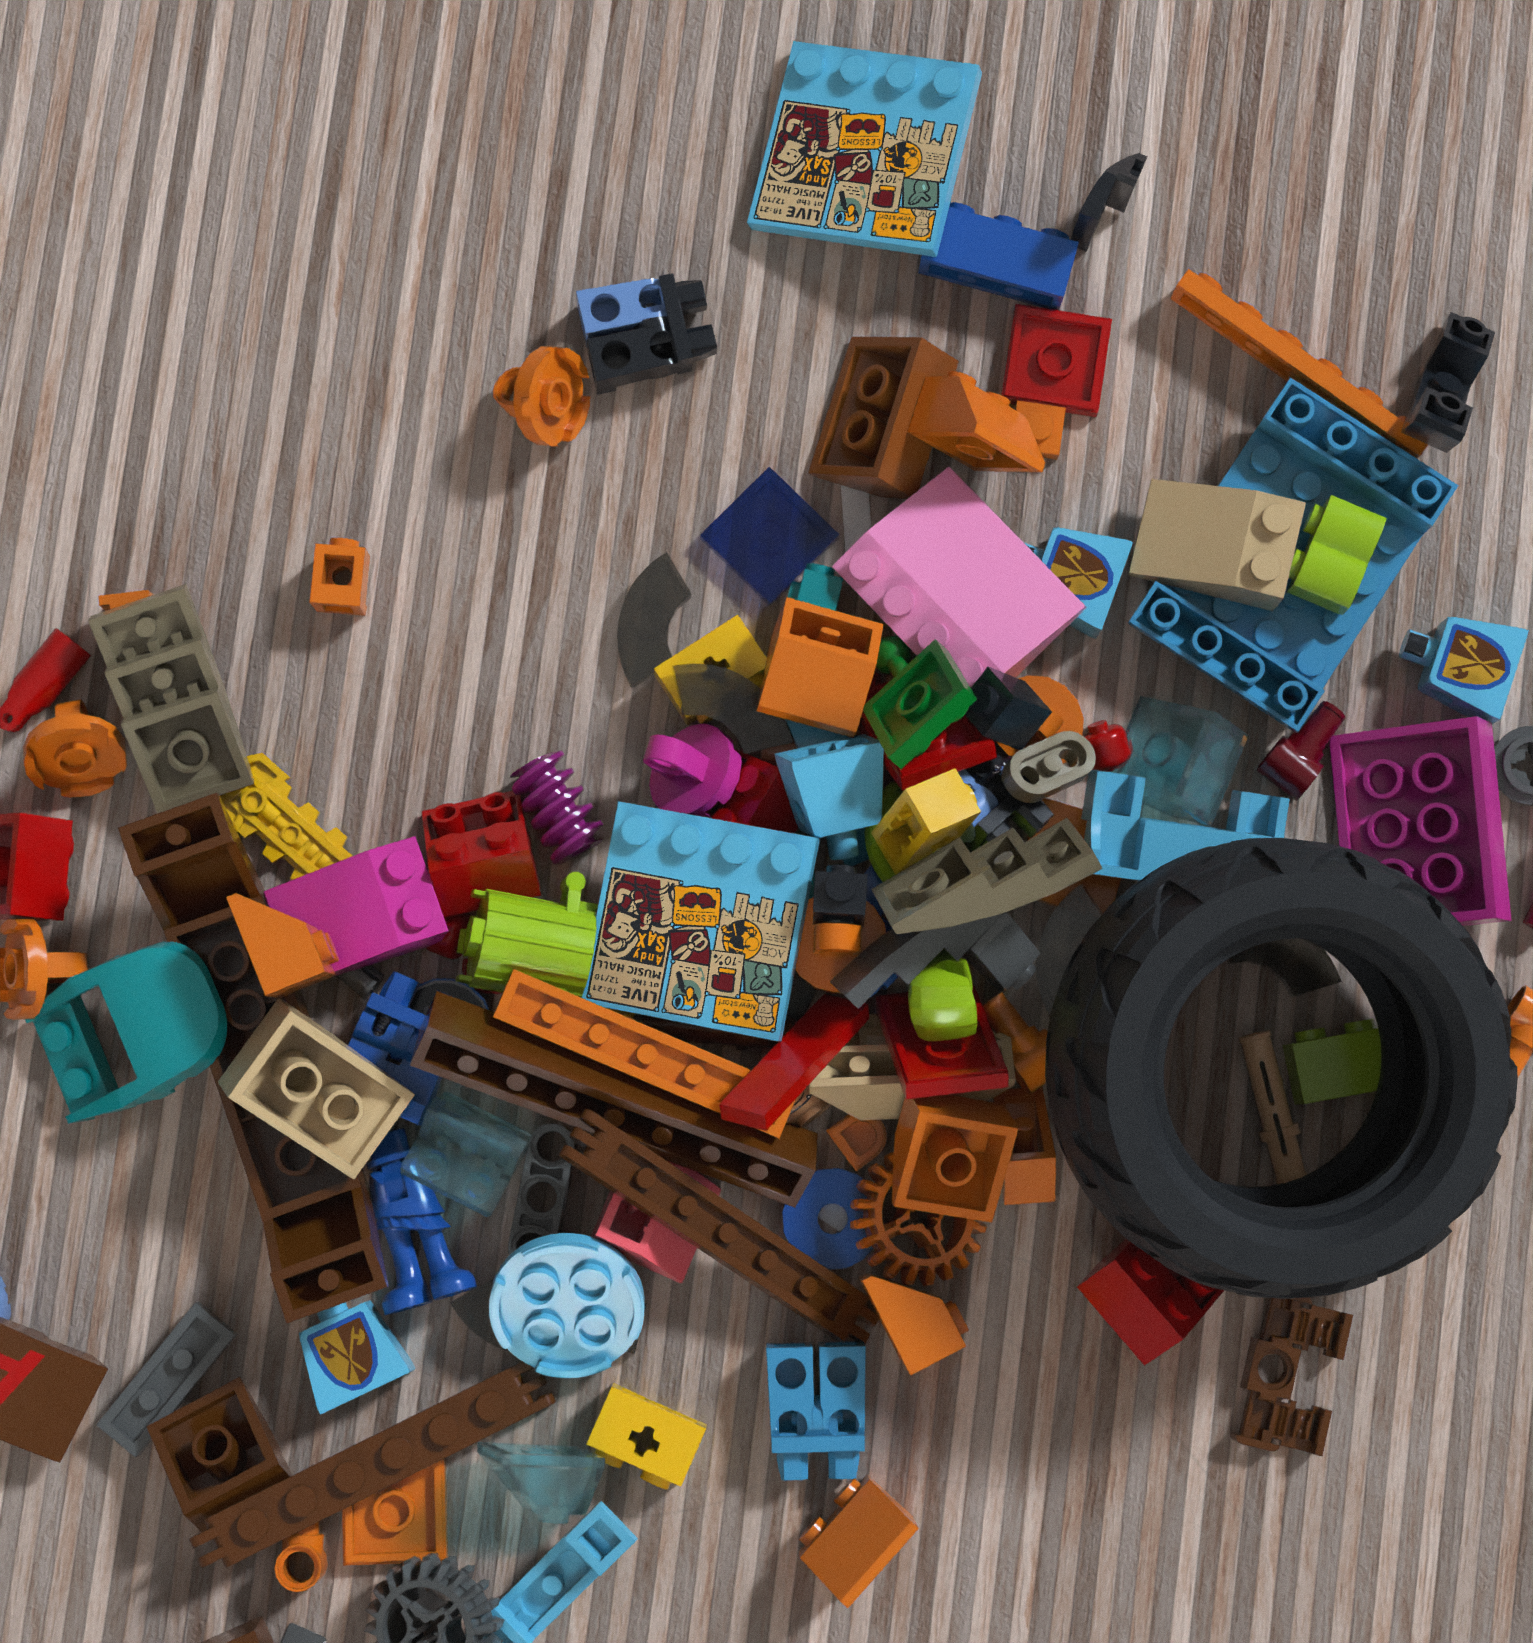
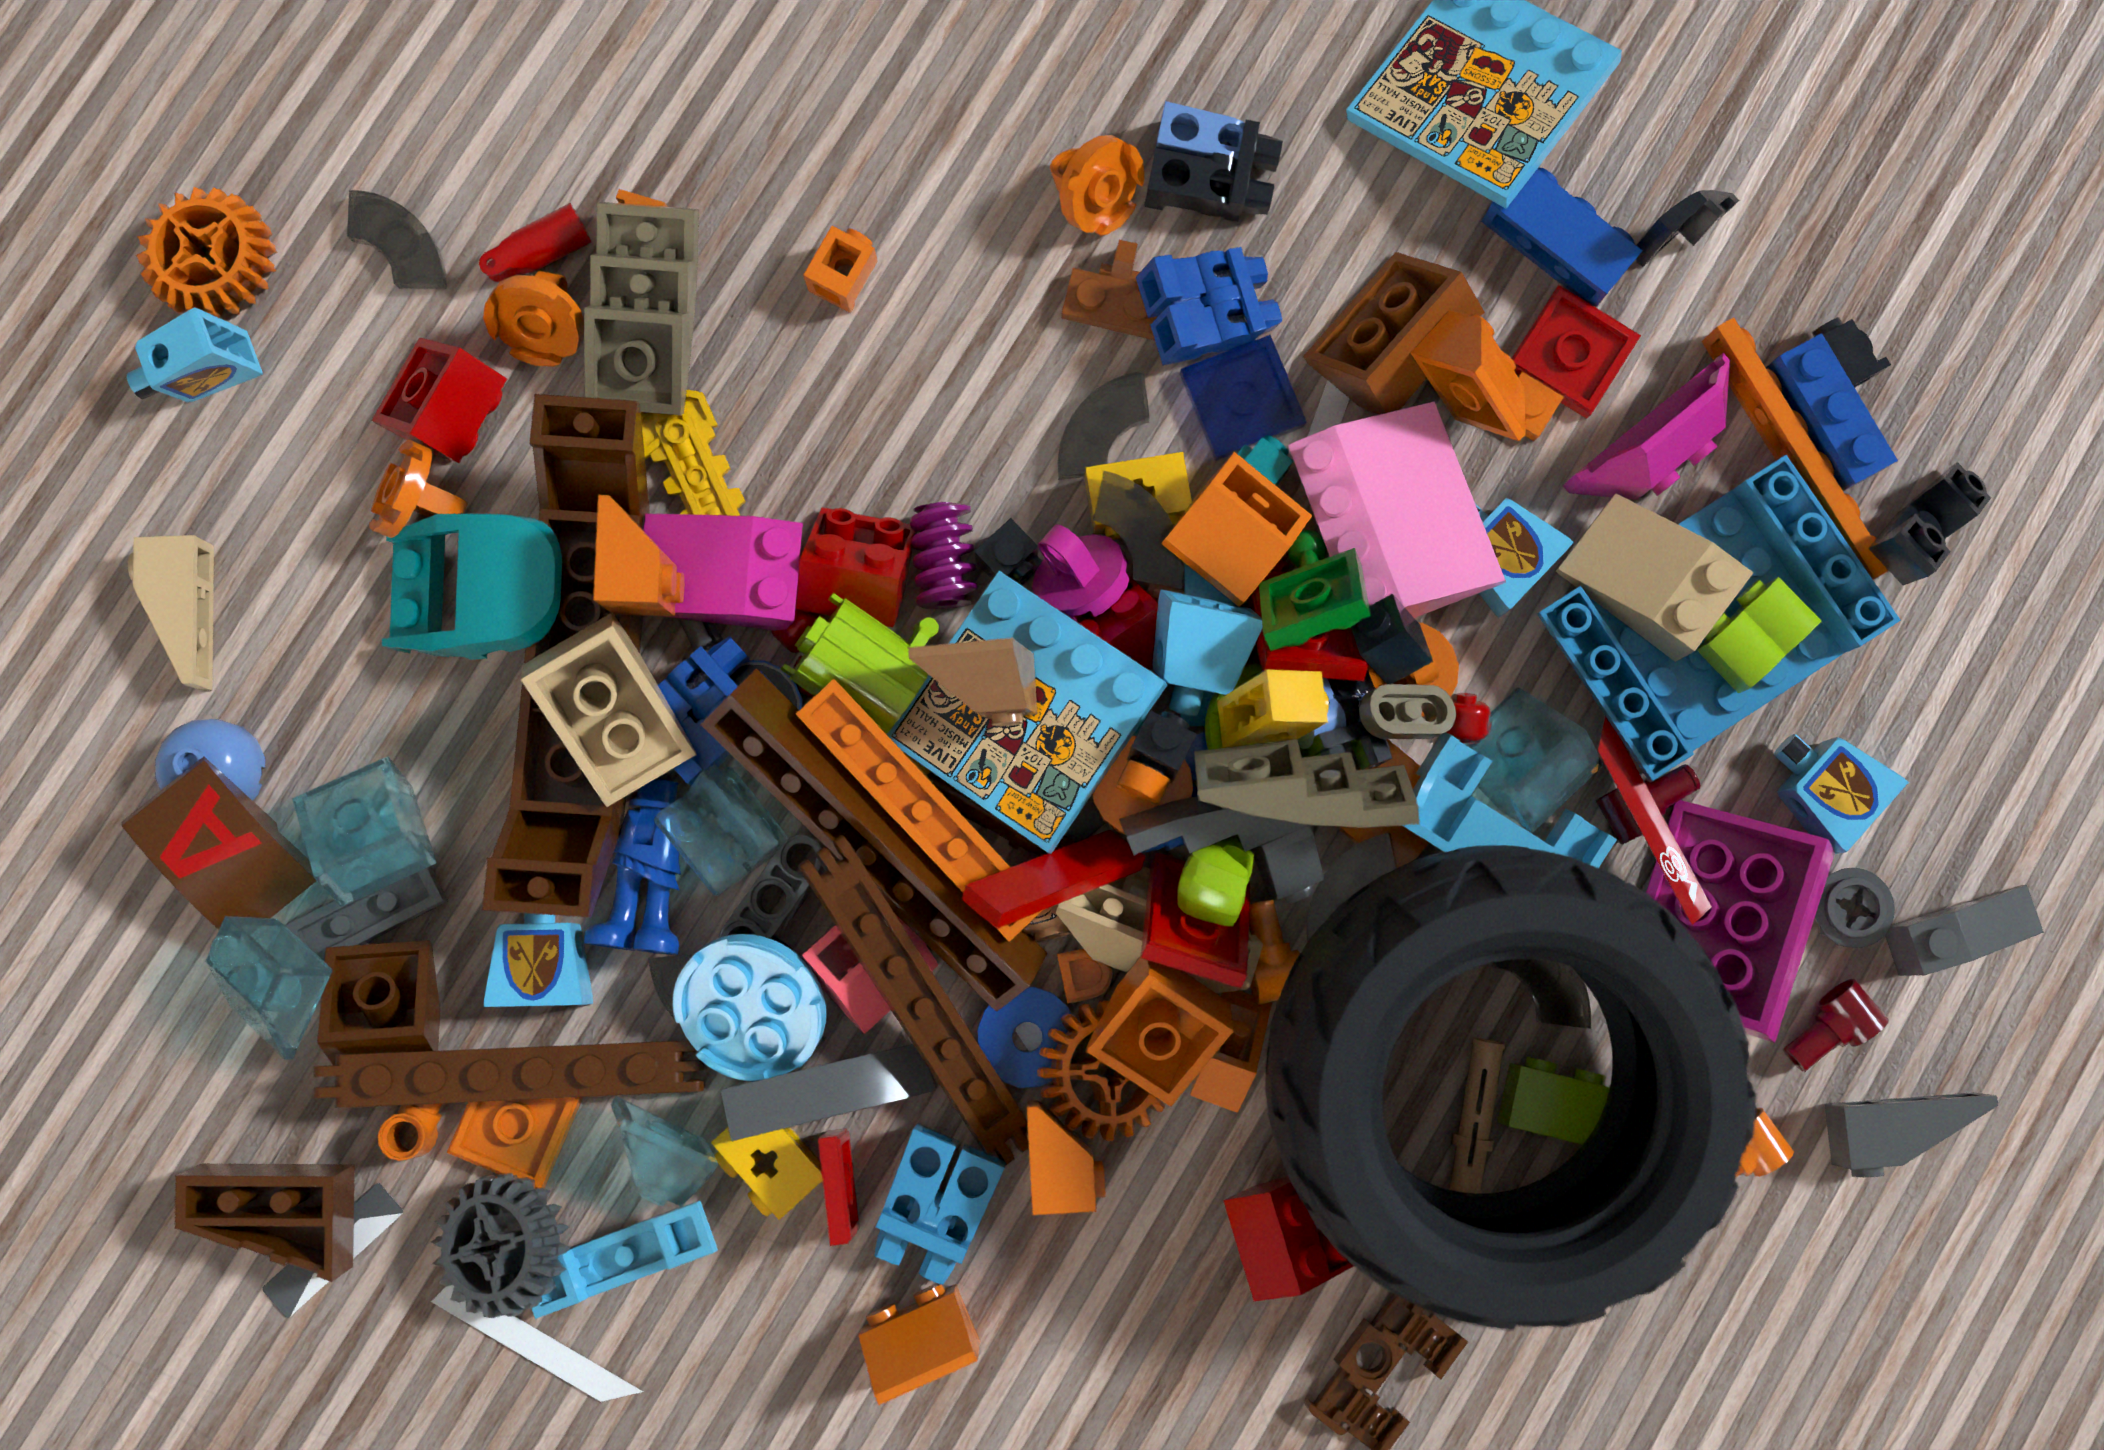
camera: 25 degrees right, 0 degrees up
(108, 1479) = (268, 978): none -> clear light blue slope
(134, 1302) = (363, 831): none -> clear light blue brick
(609, 493) = (1109, 298): none -> dark orange hinge
(618, 779) = (1009, 552): none -> black brick
(653, 907) = (986, 675): none -> medium nougat slope
(671, 1350) = (825, 1091): none -> dark grey slope
(697, 464) = (1205, 303): none -> blue hips
(722, 1430) = (839, 1186): none -> red tile
(1173, 410) = (1661, 441): none -> dark pink wedge
(1304, 260) = (1852, 350): none -> black brick
(1315, 770) = (1652, 824): none -> red sticker
(1316, 317) = (1833, 411): none -> blue brick

